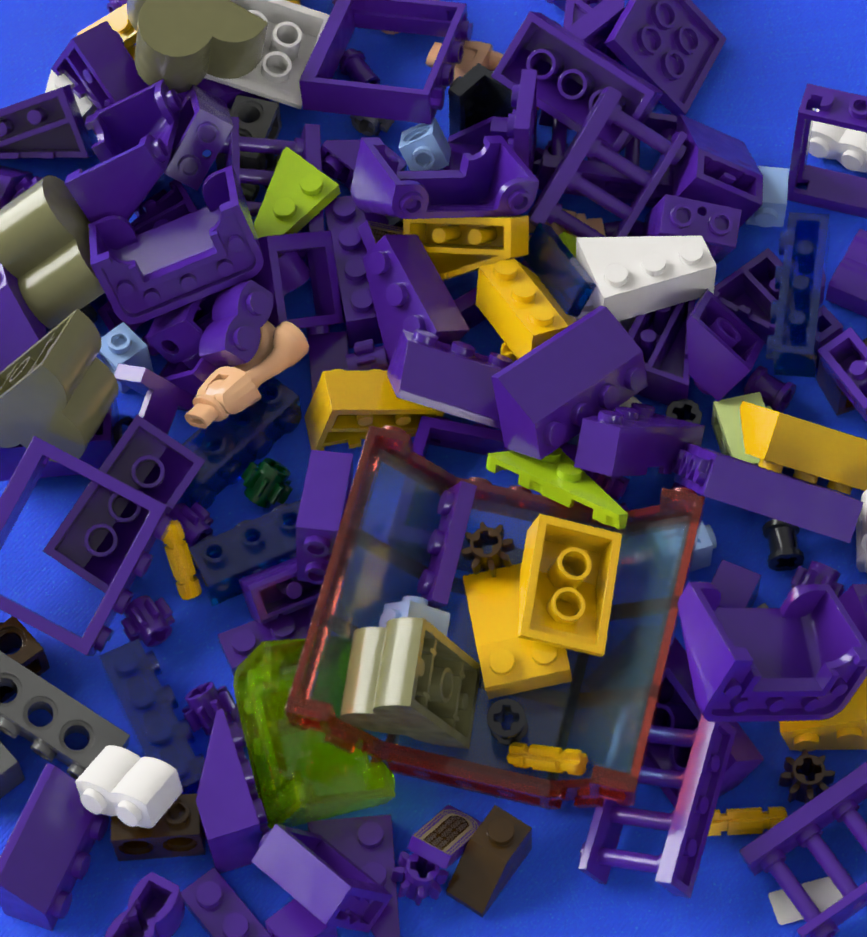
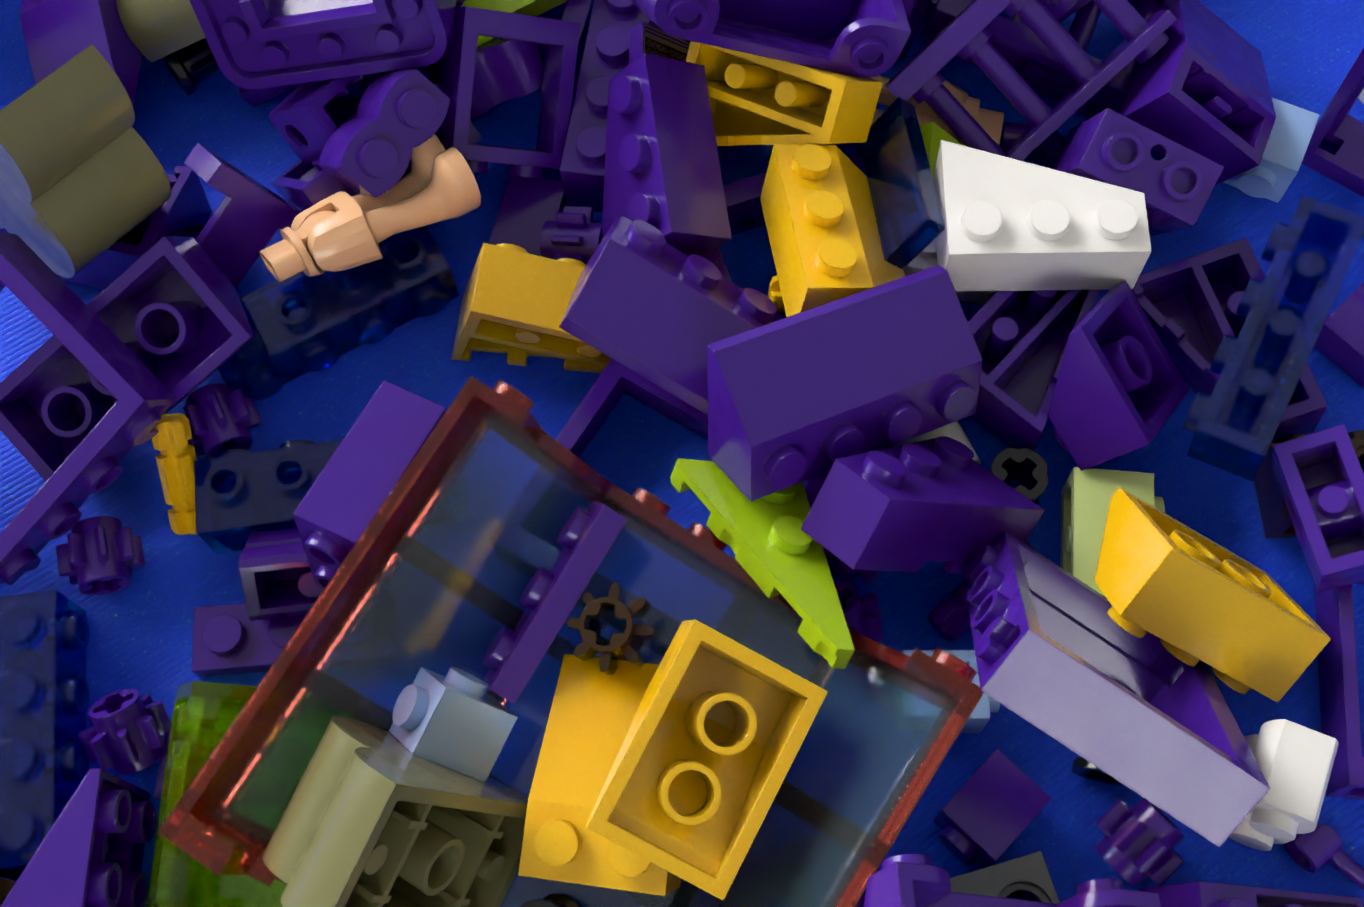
camera: 20 degrees right, 10 degrees up
(123, 347) = (237, 129): light blue brick -> none
(267, 483) = (352, 383): dark green gear -> none
(772, 390) = (1174, 472): dark purple bush -> none

